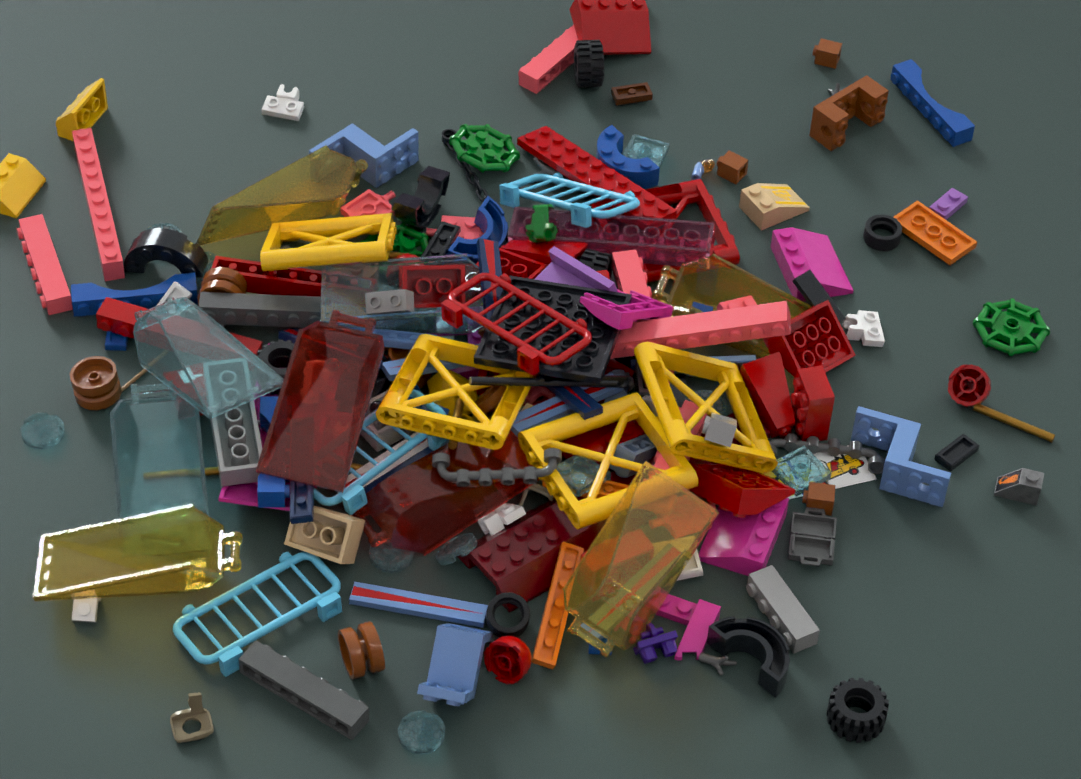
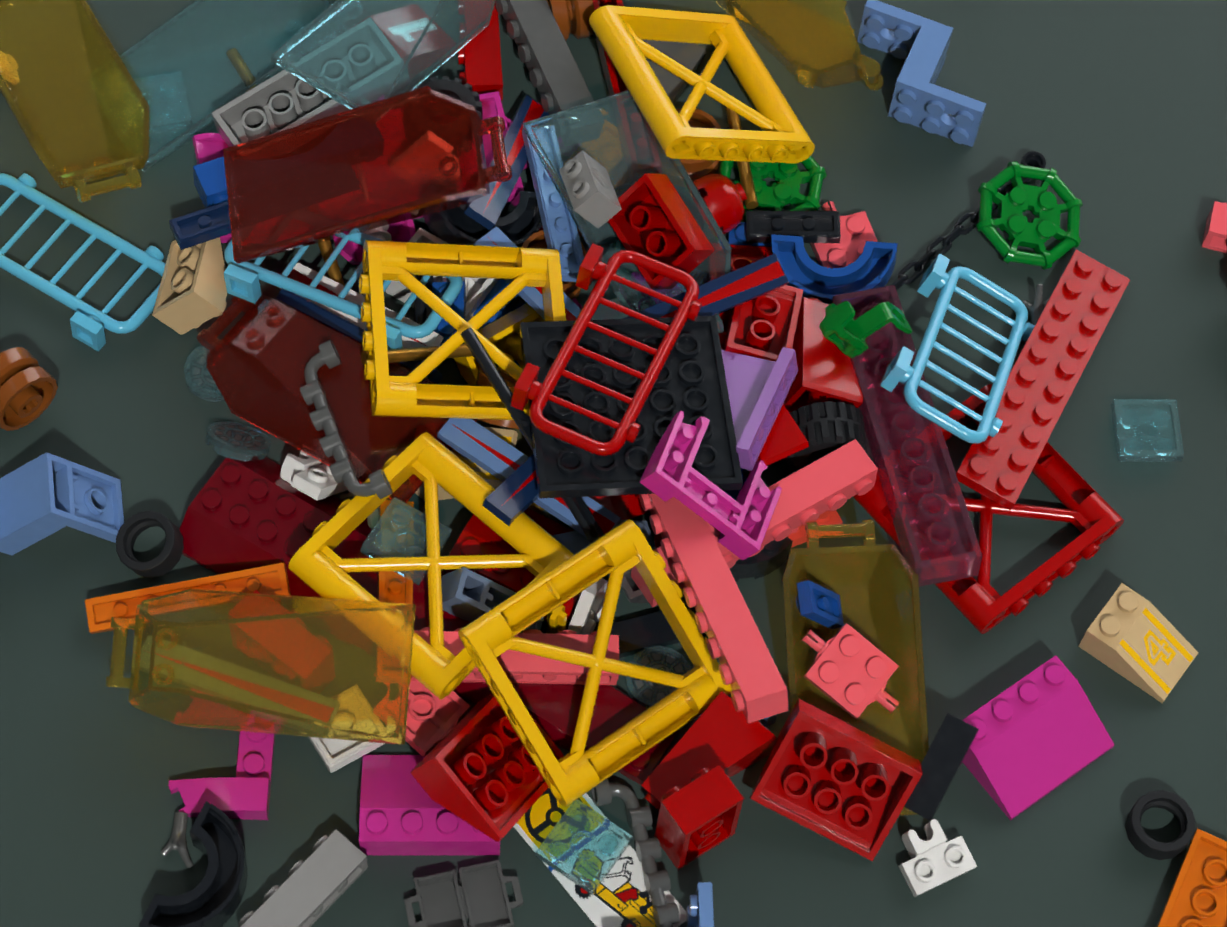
camera: 65 degrees right, 15 degrees up
(368, 204) = (832, 119): coral plate -> none
(418, 604) = (138, 430): medium blue tile -> none
(423, 206) = (866, 181): black brick -> none
(508, 659) = (76, 570): red cylinder -> none
(640, 171) = (1104, 379): blue brick -> none
(647, 647) = (163, 738): dark purple hips -> none
(702, 168) = (1161, 518): arm -> none
(719, 429) = (529, 688): light grey brick -> none
(732, 167) = (1184, 560): dark orange brick -> none
(820, 496) = (539, 889): dark orange brick -> none

